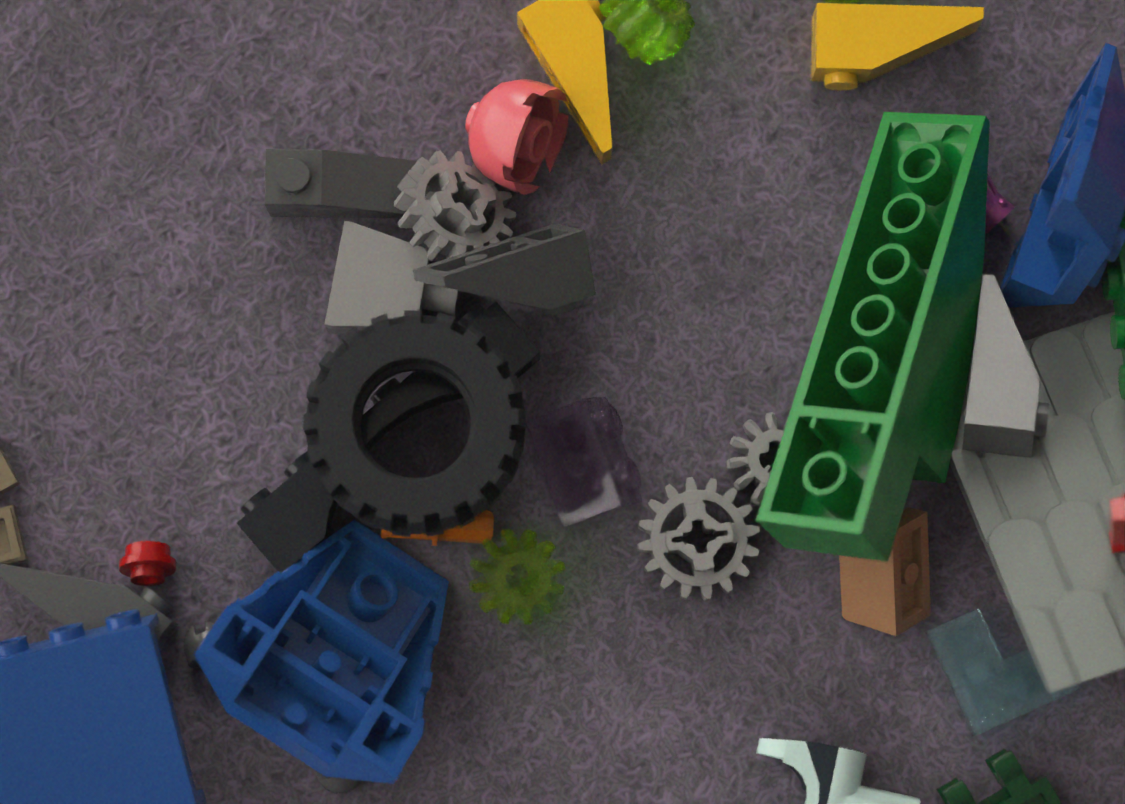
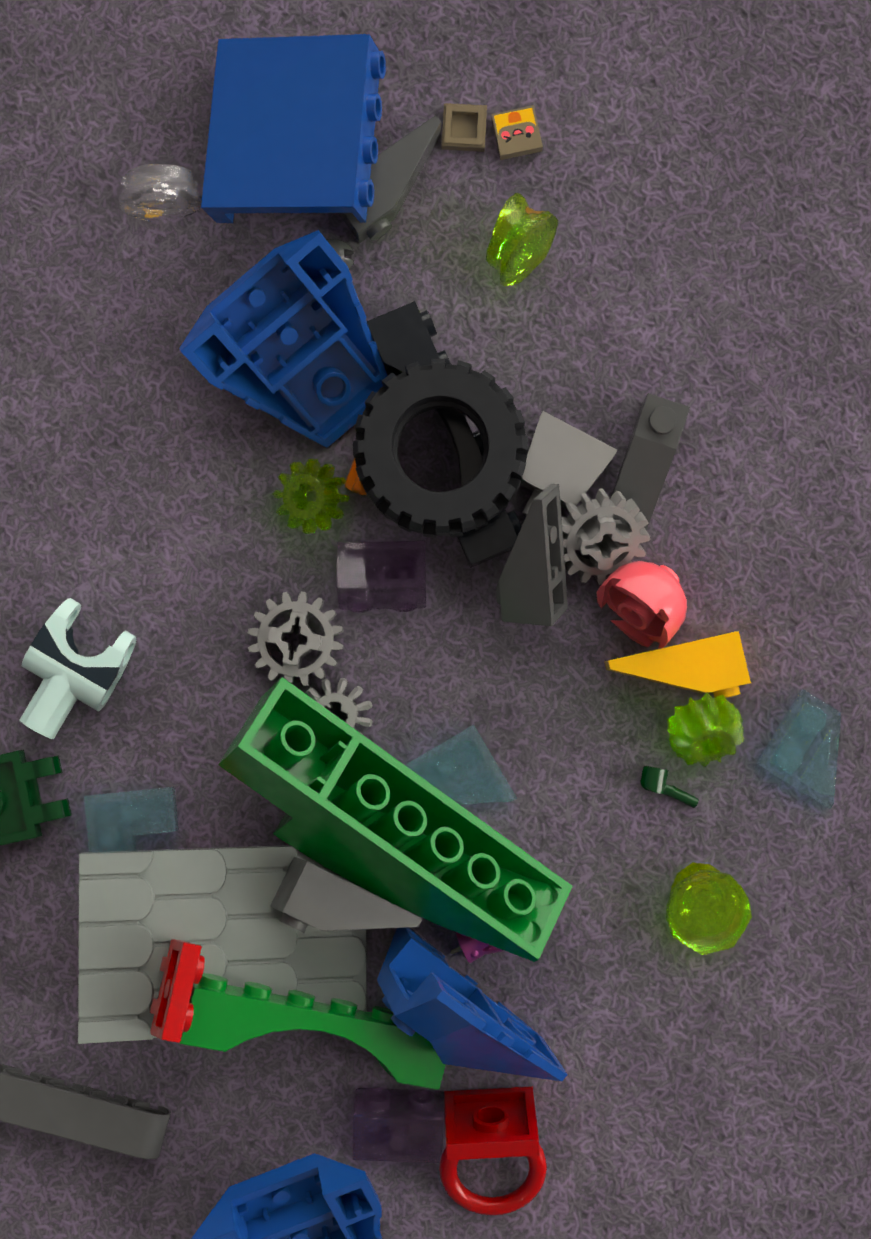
camera: 115 degrees right, 5 degrees up
(119, 420) = (520, 240): none -> clear neon green hat
(147, 563) = (409, 231): red plate -> none
(725, 59) = (655, 780): none -> dark green hand
(788, 287) = (464, 770): none -> clear light blue wing
(871, 39) = (633, 895): yellow slope -> none
(894, 592) = (208, 781): medium nougat panel -> none

